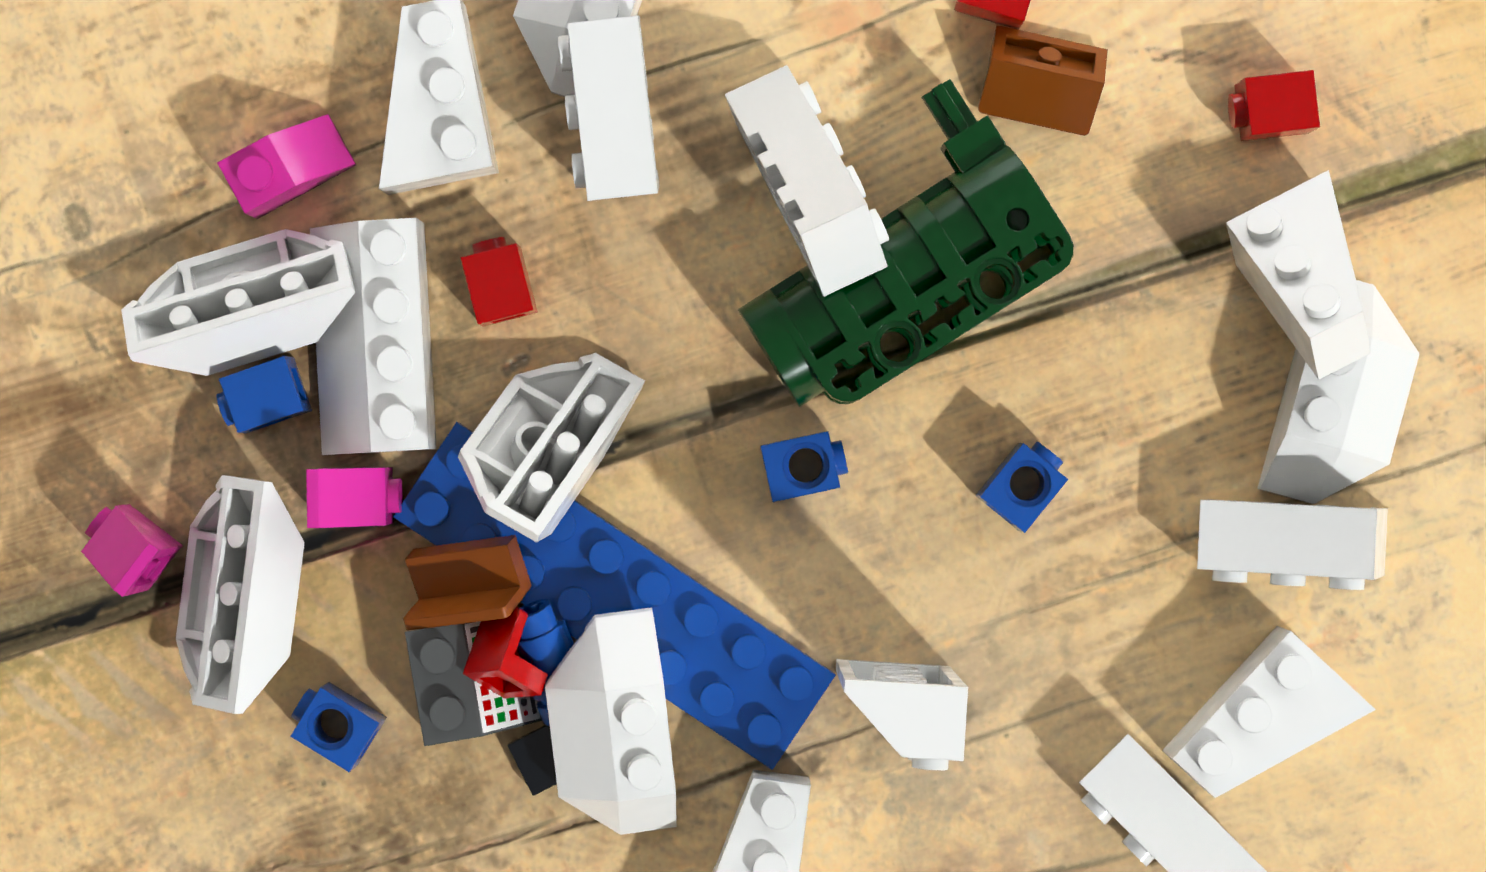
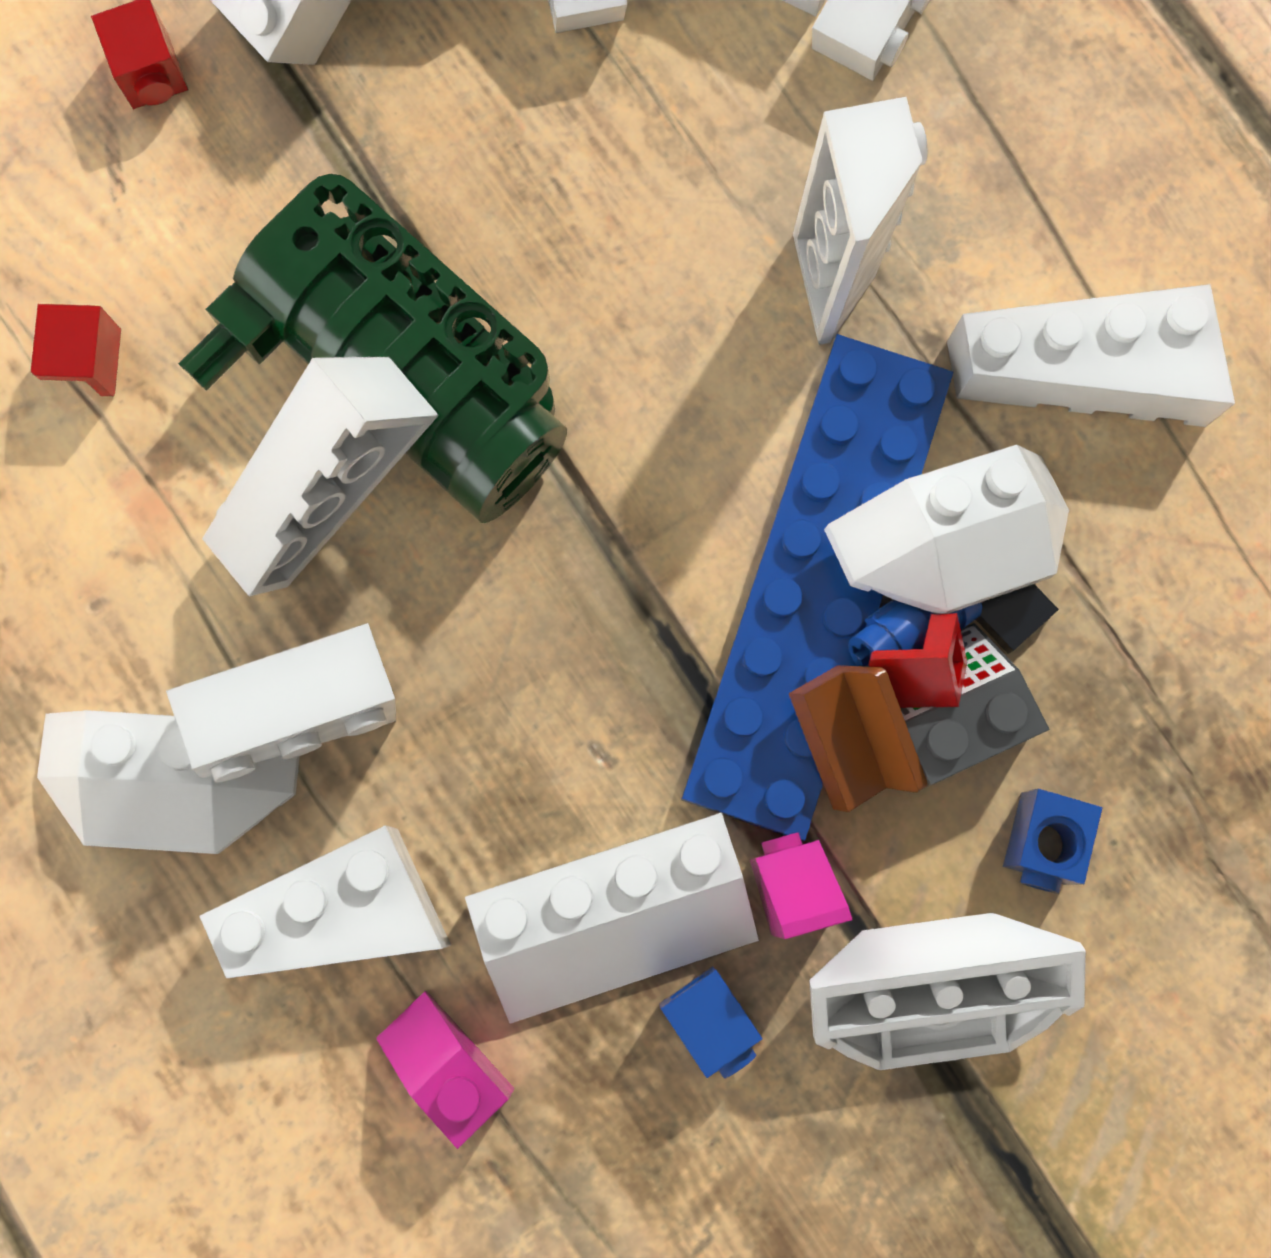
camera: 110 degrees left, 10 degrees down
(128, 549) = (930, 1134): dark pink slope -> none
(240, 303) = (614, 1079): white wedge -> none
(498, 282) = (515, 791): red brick -> none
(547, 440) = (678, 685): white wedge -> none
(776, 463) = (634, 445): blue brick -> none
(998, 494) = (597, 221): blue brick -> none
(1043, 80) = (165, 282): dark orange panel -> none

